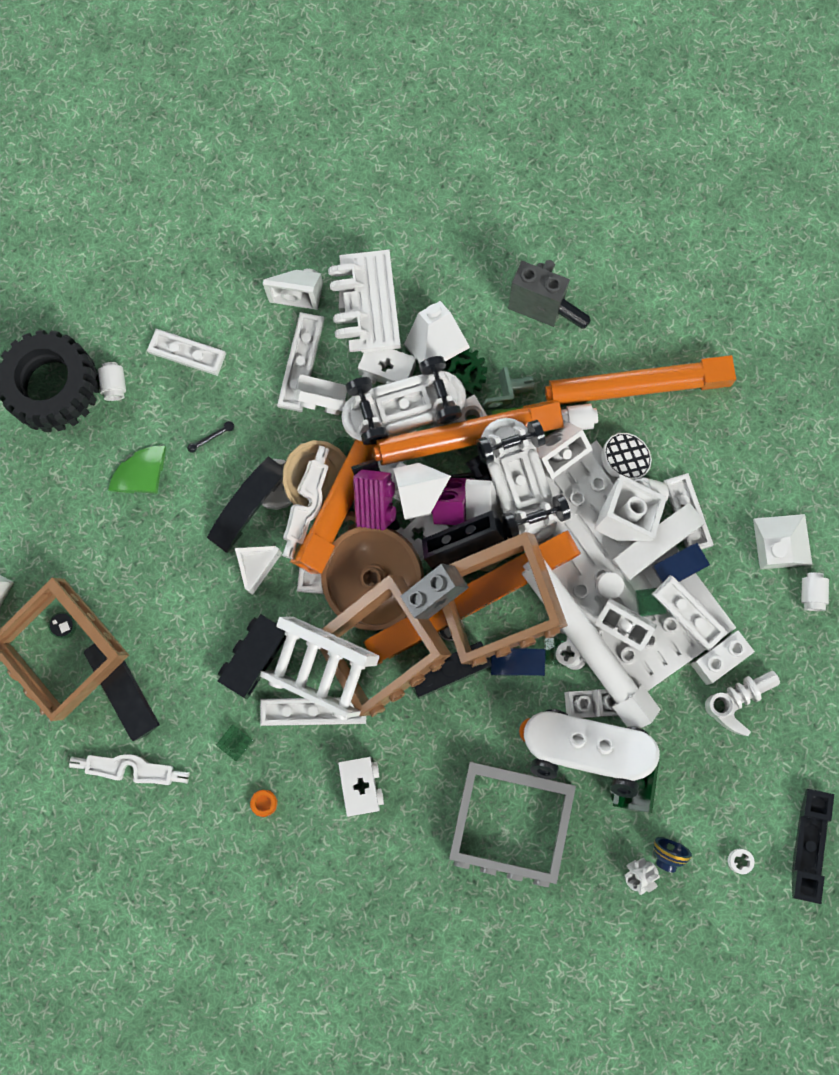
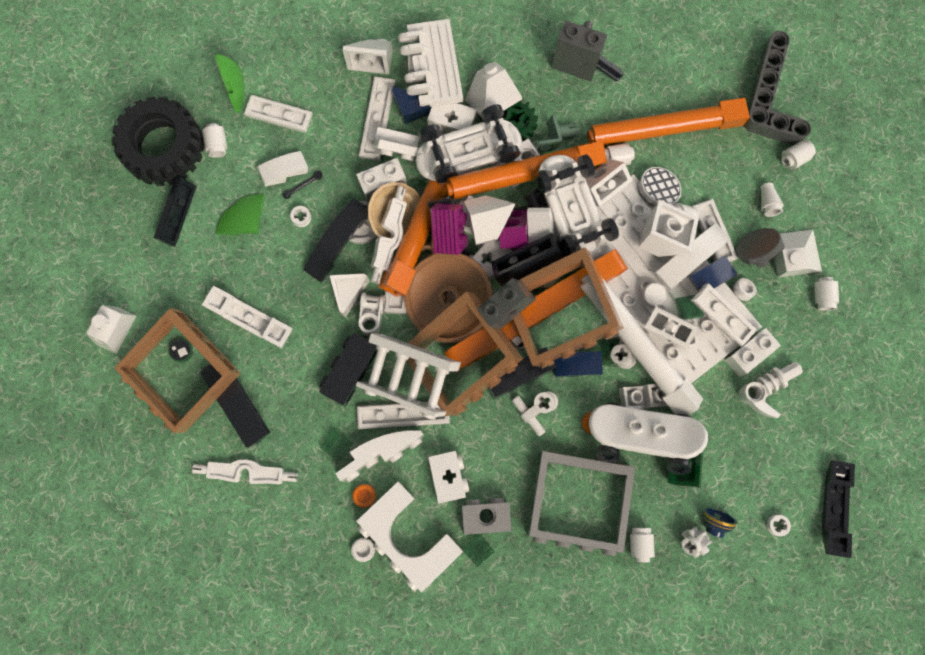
camera: 10 degrees left, 0 degrees up
(63, 463) = (175, 212): none -> black tile
(136, 312) = (233, 80): none -> bright green brick
(140, 590) = (247, 317): none -> white slope
(191, 415) = (279, 168): none -> white slope
(199, 469) = (304, 210): none -> white bush
(259, 864) = (363, 549): none -> white tile
(282, 587) = (371, 310): none -> white piece
(292, 748) = (388, 446): none -> white slope
(299, 432) = (379, 175): none -> white brick
(320, 890) = (418, 569): none -> white arch
(338, 349) = (409, 105): none -> dark blue slope
(386, 842) = (501, 517): none -> light grey brick
(391, 872) = (478, 550): none -> clear green tile
(458, 718) = (529, 415): none -> white piece
(580, 875) = (642, 544): none -> white brick
(718, 582) = (744, 289): none -> white tile
(738, 533) = (760, 246): none -> dark grey tile
(756, 478) = (770, 201): none -> white cone
(760, 348) = (767, 92): none -> dark grey beam
(792, 424) = (798, 154): none -> white brick

